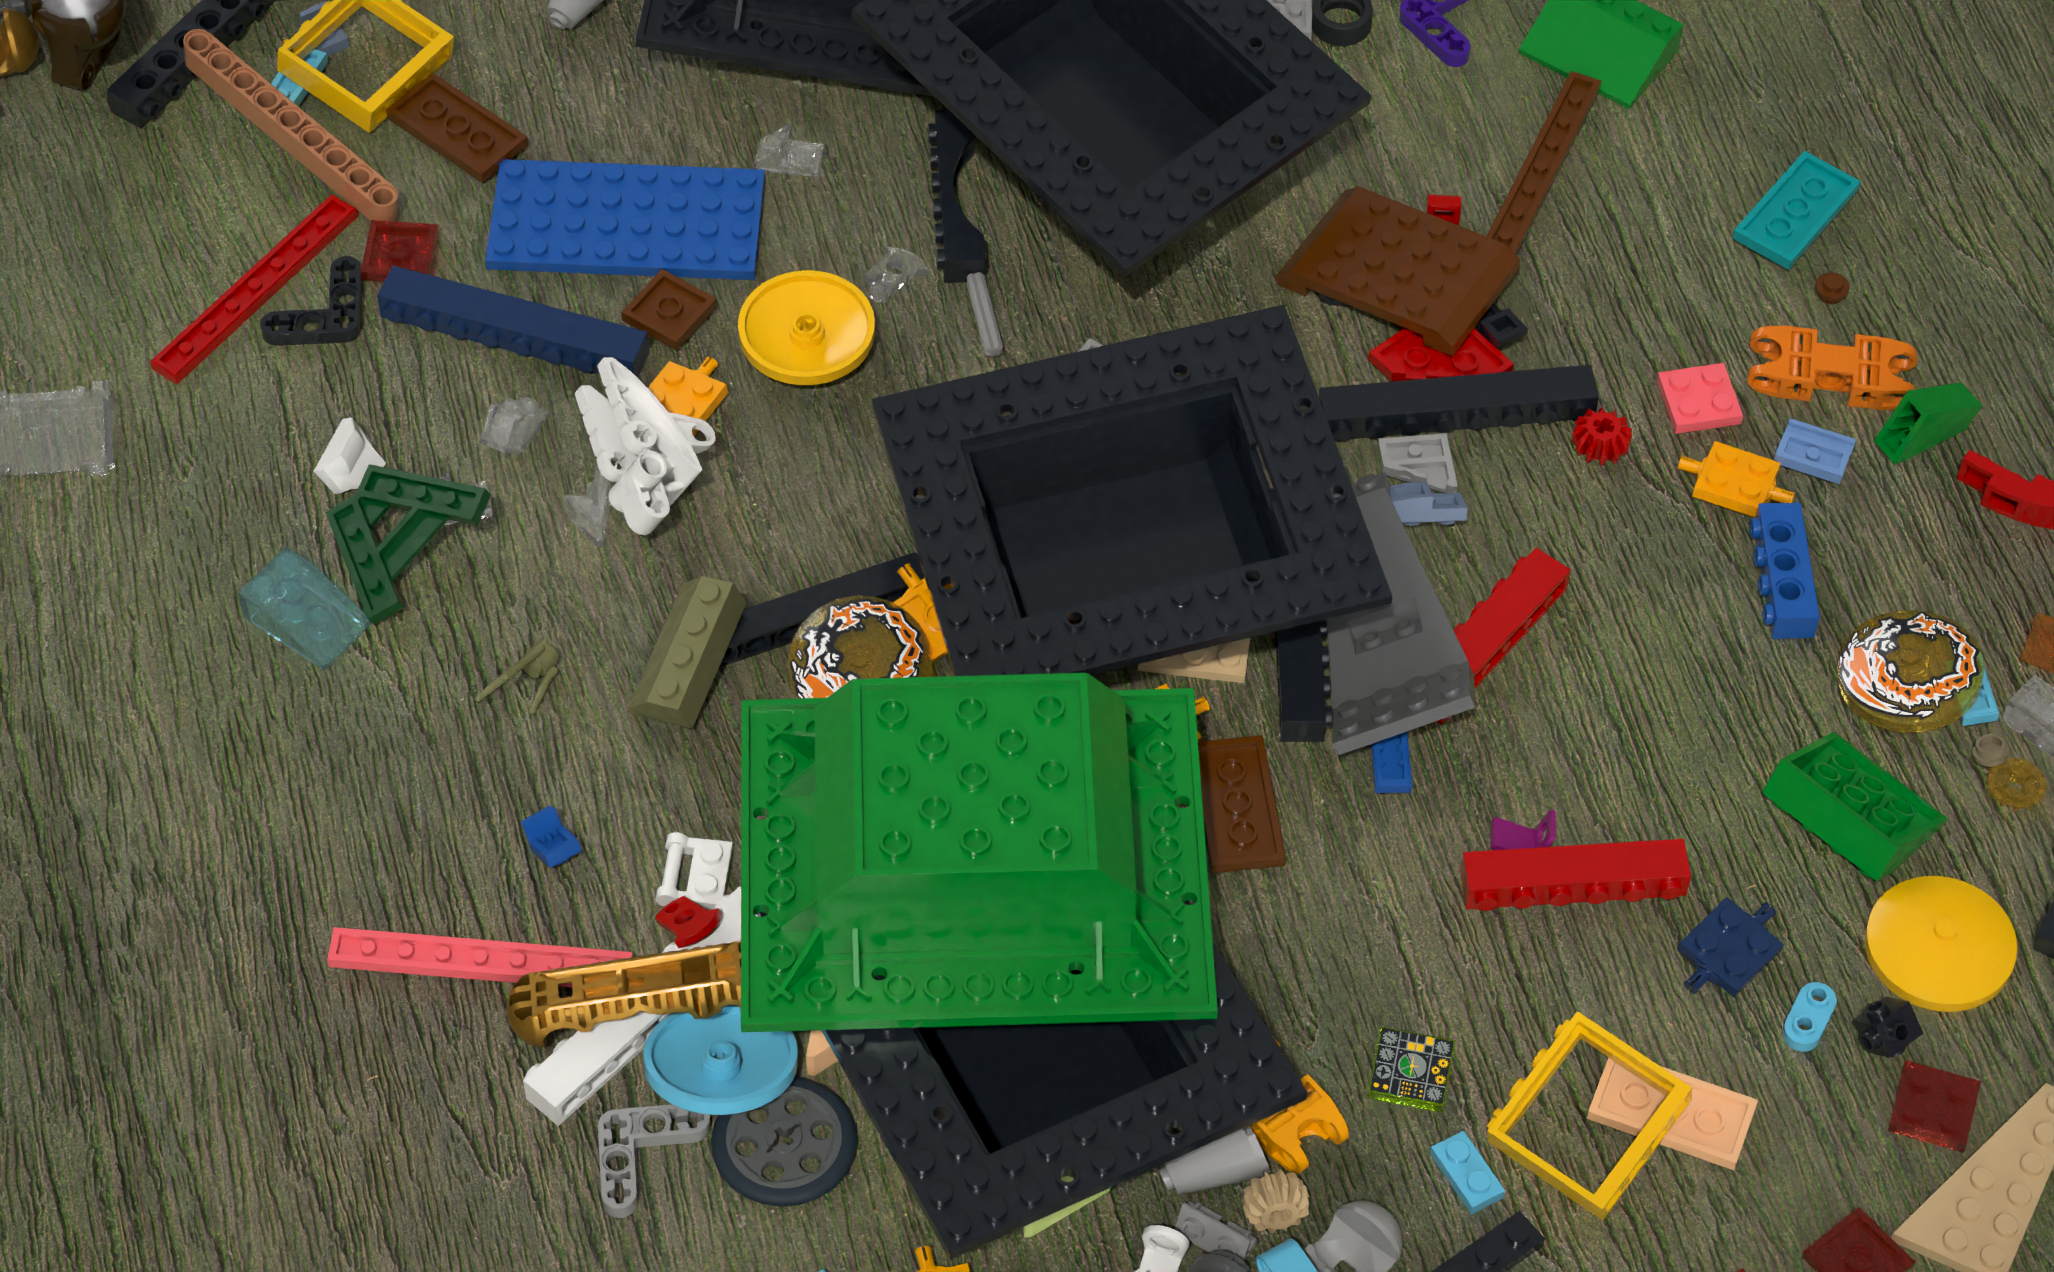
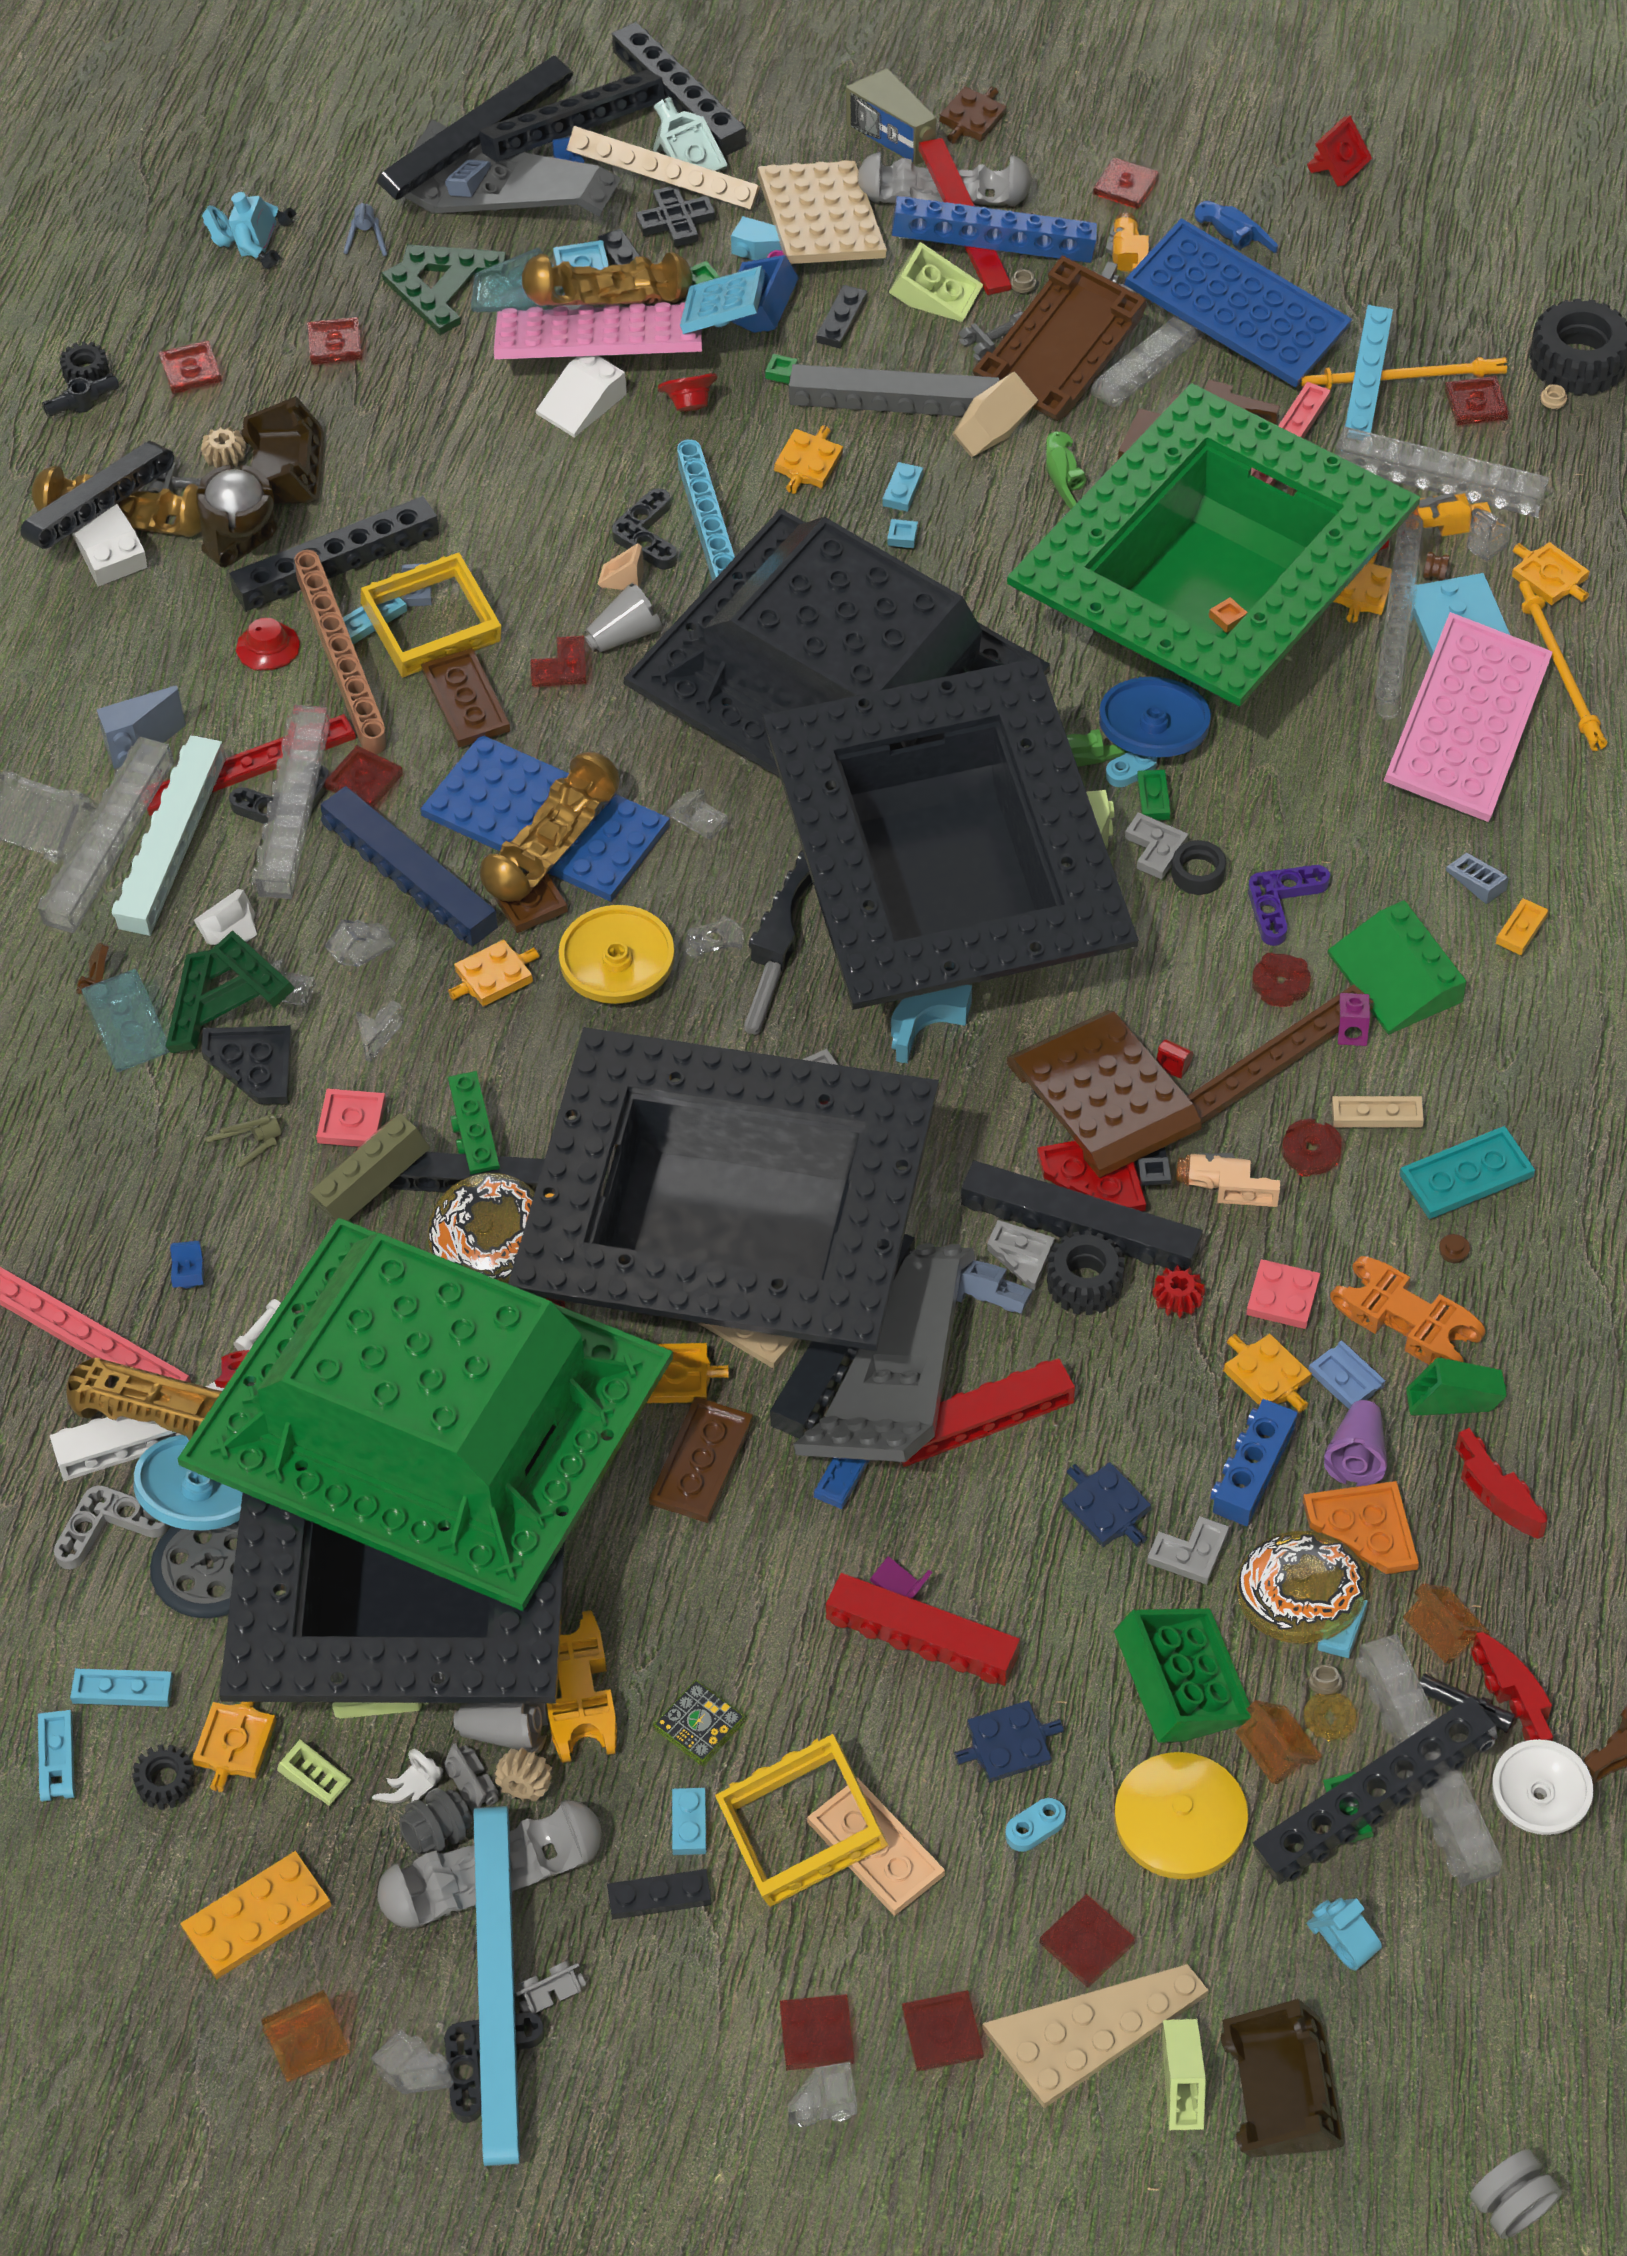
camera: 30 degrees right, 0 degrees up
(109, 290) = (148, 716): none -> sand blue slope
(148, 420) = (105, 835): none -> clear brick
(192, 154) = (267, 645): none -> red hat
(223, 394) = (169, 835): none -> light aqua brick
(225, 554) = (96, 967): none -> reddish brown piece
(343, 305) = (292, 802): none -> clear brick
(474, 593) = (252, 1059): none -> black plate
(546, 56) = (564, 670): none -> clear red plate
(625, 610) = (350, 1117): none -> coral plate
(647, 442) = (433, 996): white piece -> none
(655, 222) = (556, 825): none -> pearl gold piece
(770, 563) = (472, 1123): none -> green bracket
(1155, 273) = (919, 1011): none -> medium azure arch
(1493, 80) = (1285, 966): none -> clear red plate
(1501, 433) = (1080, 1292): none -> black tyre
(1578, 306) = (1230, 1177): none -> light nougat plate
(1594, 98) = (1354, 1013): none -> magenta bracket
(1628, 259) = (1311, 1161): none -> clear red plate
(1668, 674) = (1106, 1505): none -> dark blue plate
(1673, 185) = (1377, 1111): none -> tan plate
(1787, 688) = (1192, 1558): none -> light grey plate
(1877, 512) = (1358, 1446): none -> medium lavender cone
(1887, 1027) = (1084, 1860): black brick -> none
(1930, 580) = (1368, 1522): none -> orange plate
(1986, 831) = (1276, 1740): none -> clear orange bracket

